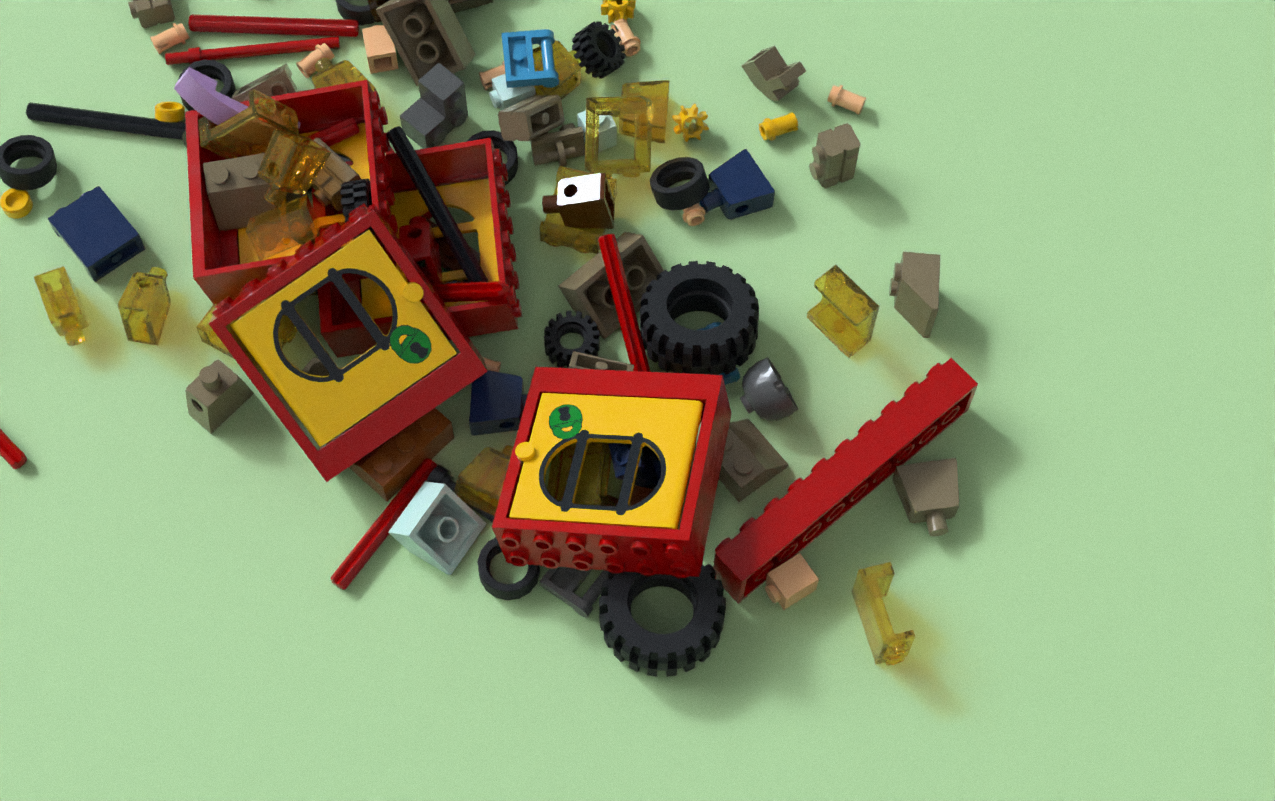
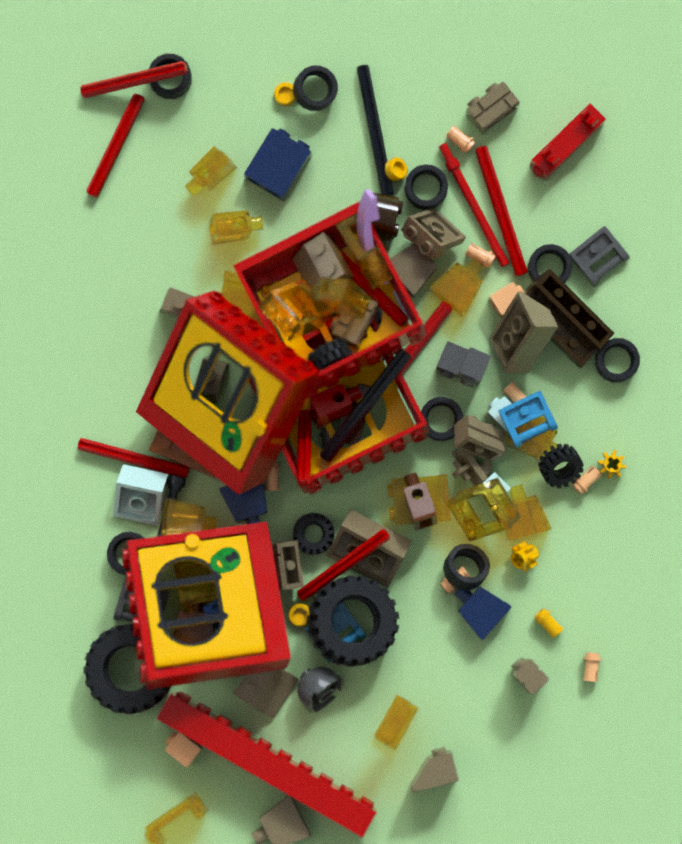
camera: 75 degrees right, 20 degrees up
(772, 74) = (591, 604): dark tan brick -> none

